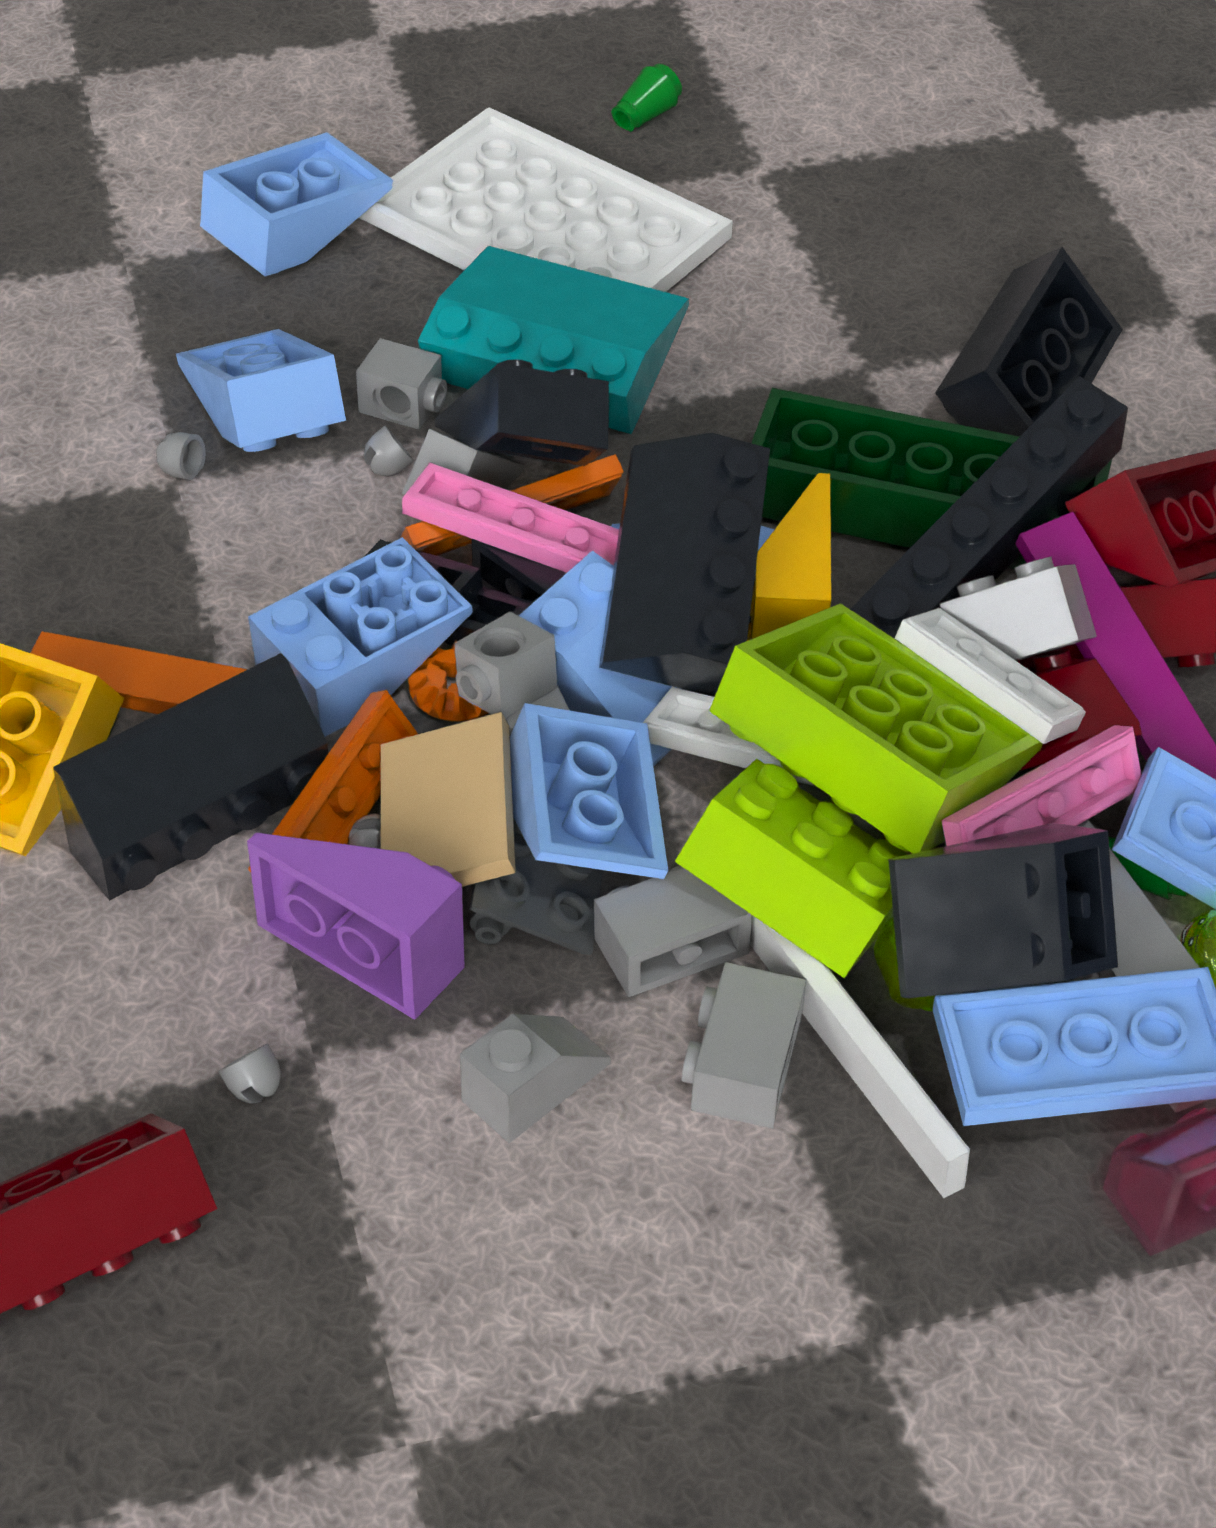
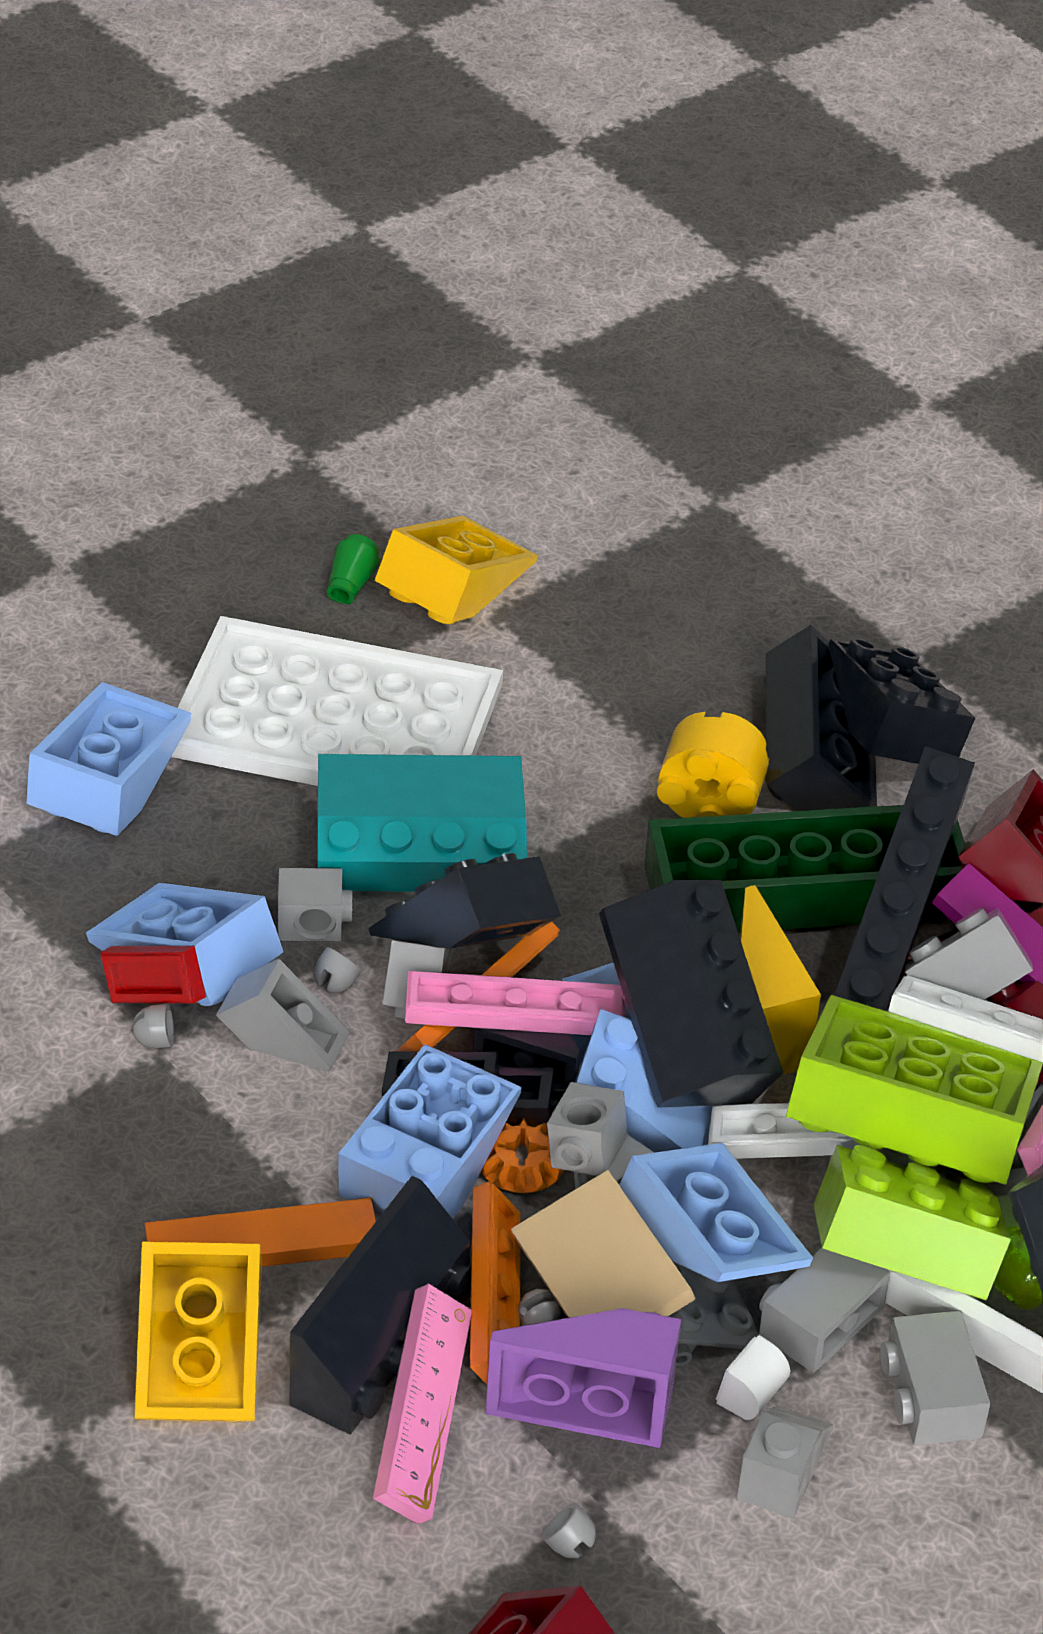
camera: 25 degrees left, 5 degrees down
(176, 891) = (422, 1404): none -> bright pink tile
(194, 402) = (153, 974): none -> red tile
(302, 481) = (282, 1017): none -> light grey slope
(546, 976) = (753, 1378): none -> white brick
(744, 116) = (451, 566): none -> yellow slope
(882, 357) = (713, 766): none -> yellow brick
(1124, 348) = (896, 702): none -> black slope

